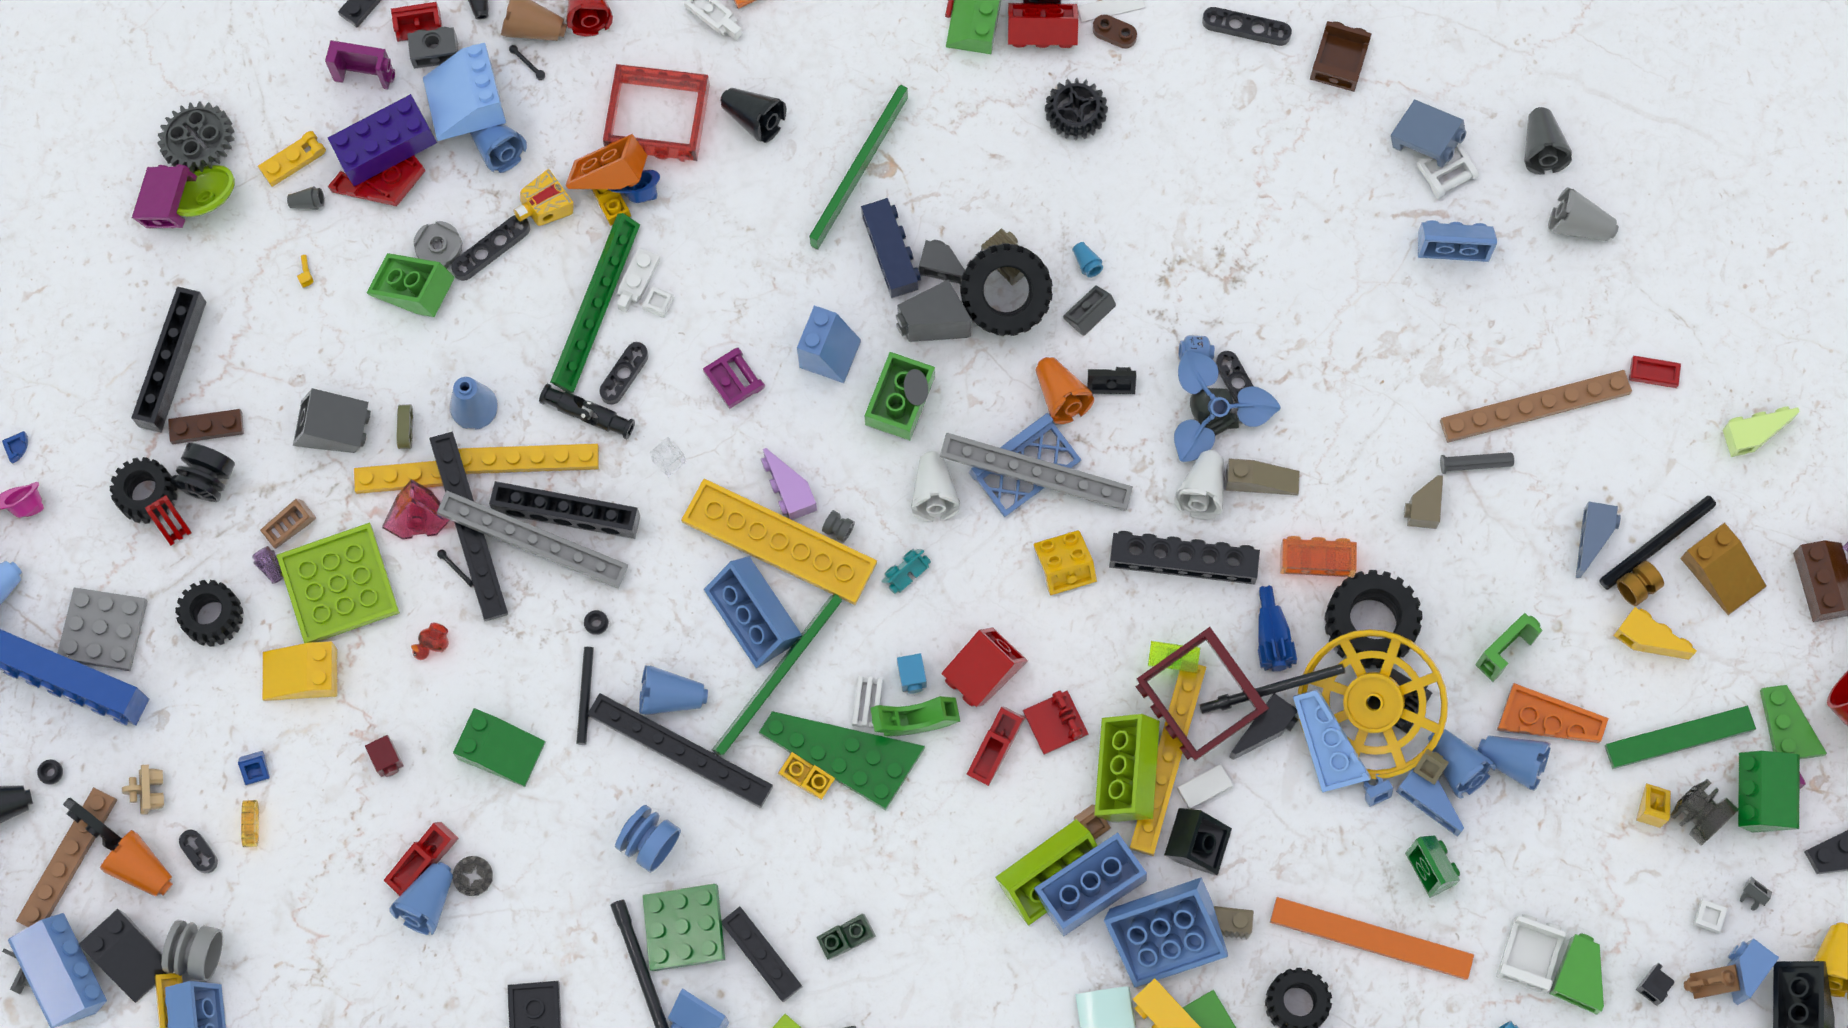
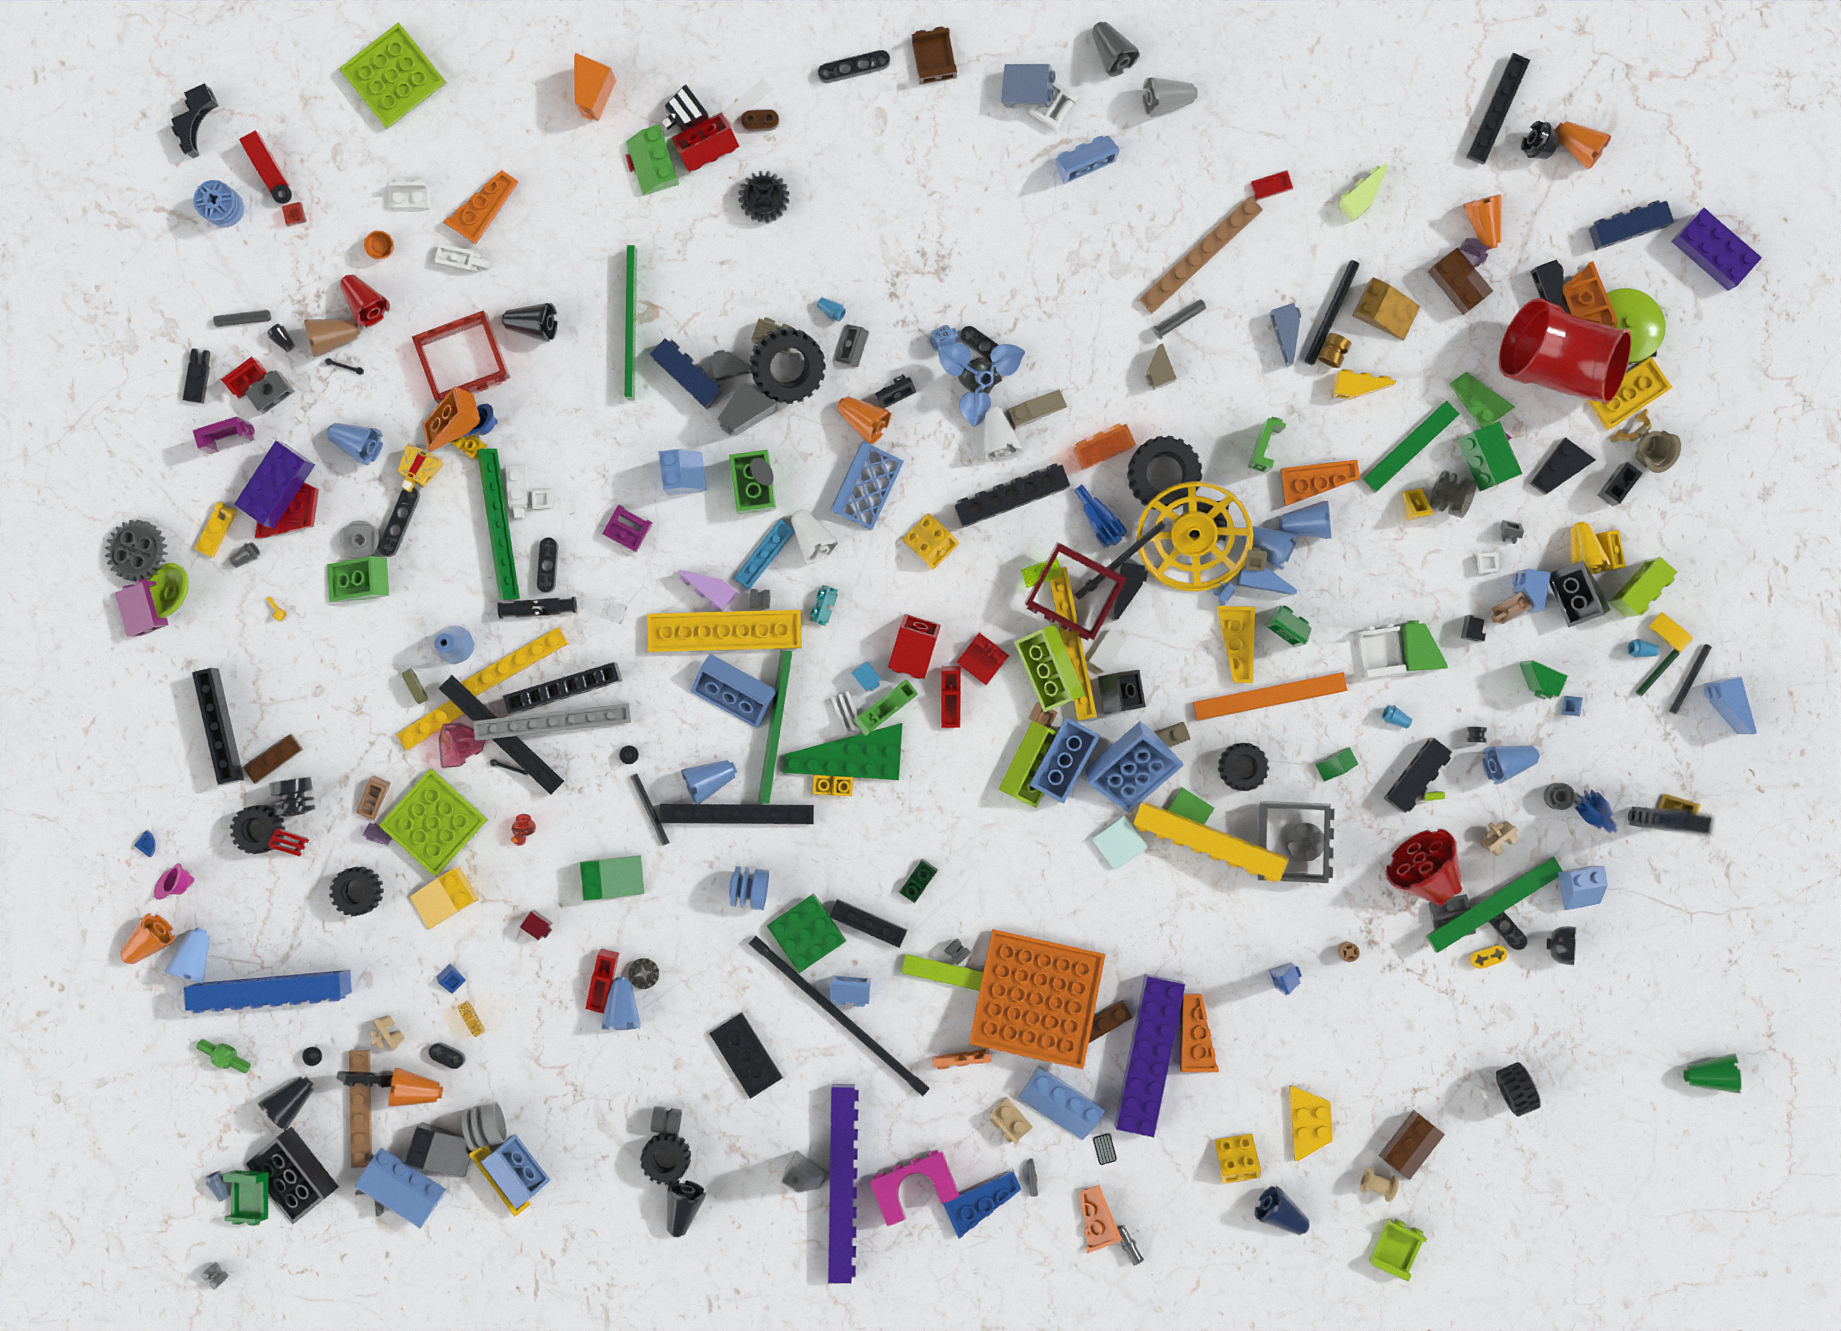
camera: 25 degrees left, 15 degrees up
(102, 628) = (287, 939): light grey plate -> none
(331, 422) = (361, 711): dark grey slope -> none
(464, 94) = (313, 418): light blue slope -> none
(870, 482) = (764, 554): none -> dark azure tile
(1036, 471) = (877, 488): light grey plate -> none
(1329, 747) = (1181, 582): light blue wing -> none
(1367, 853) = (1239, 635): none -> yellow wing

